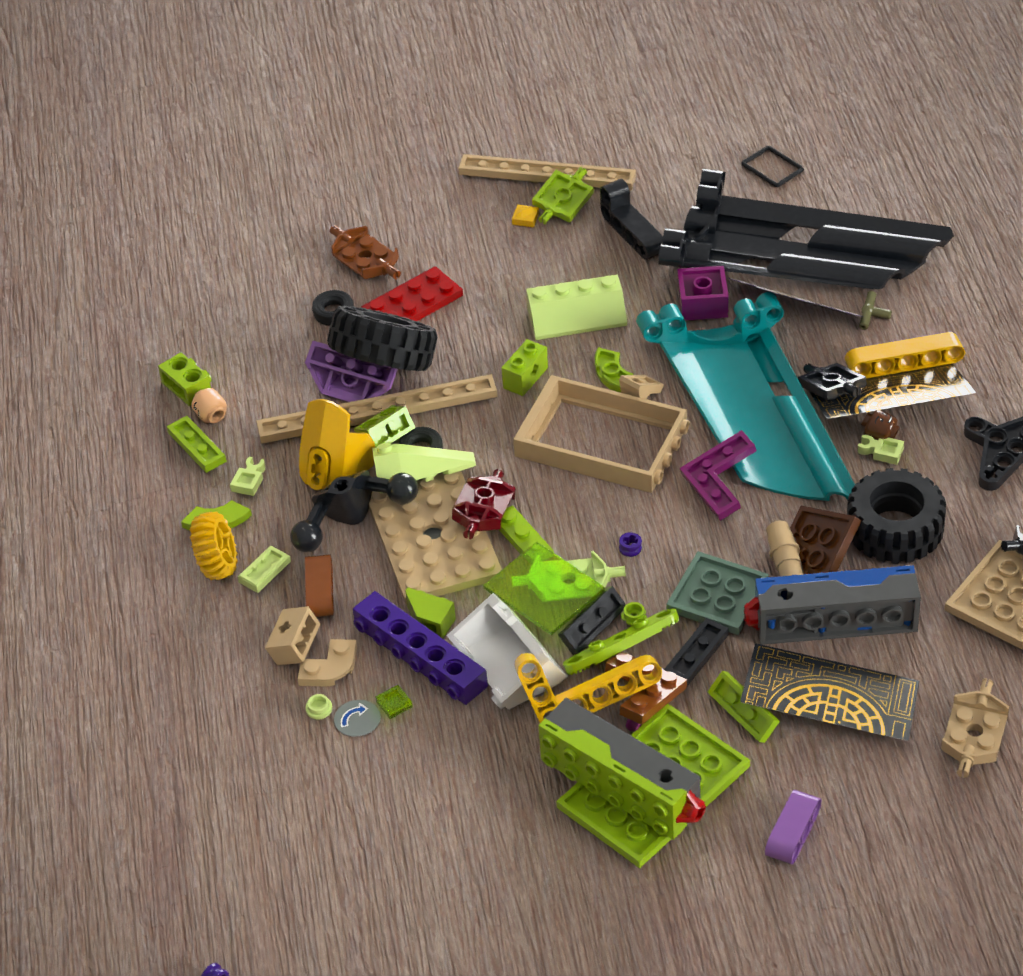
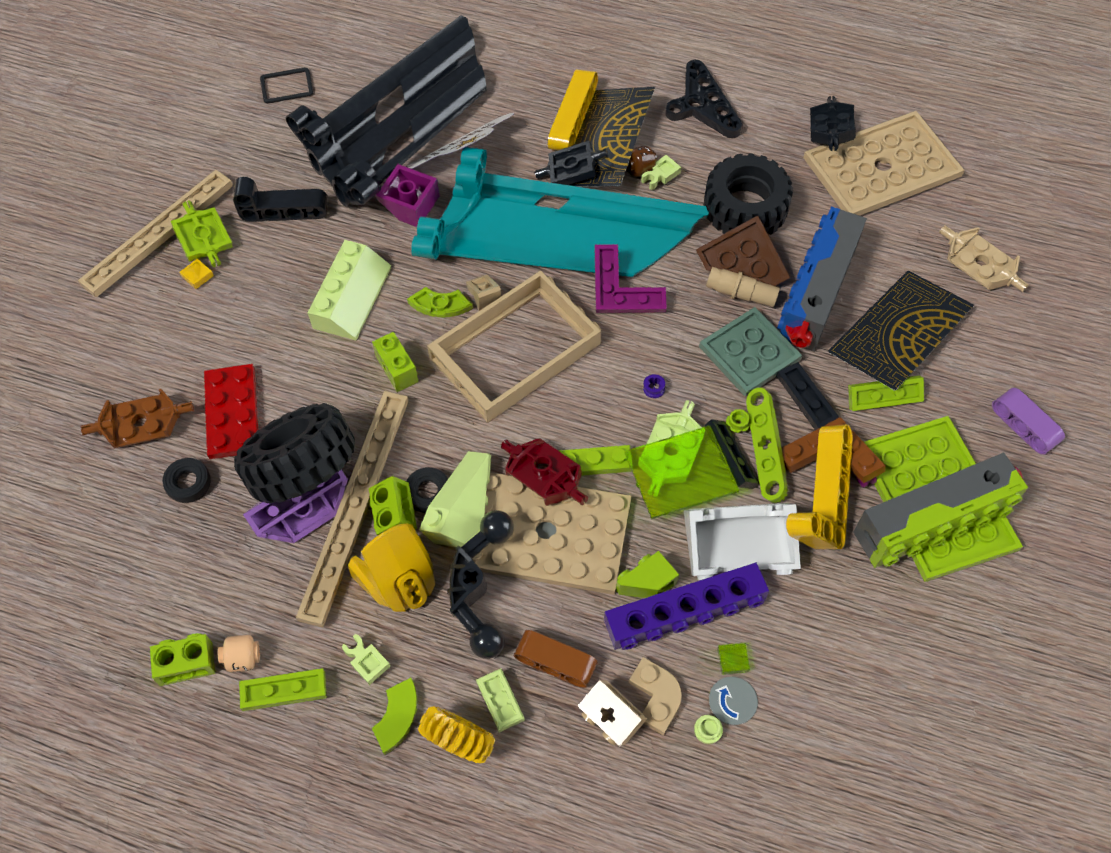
camera: 65 degrees left, 15 degrees up
(869, 310) = (504, 107): olive piece -> none

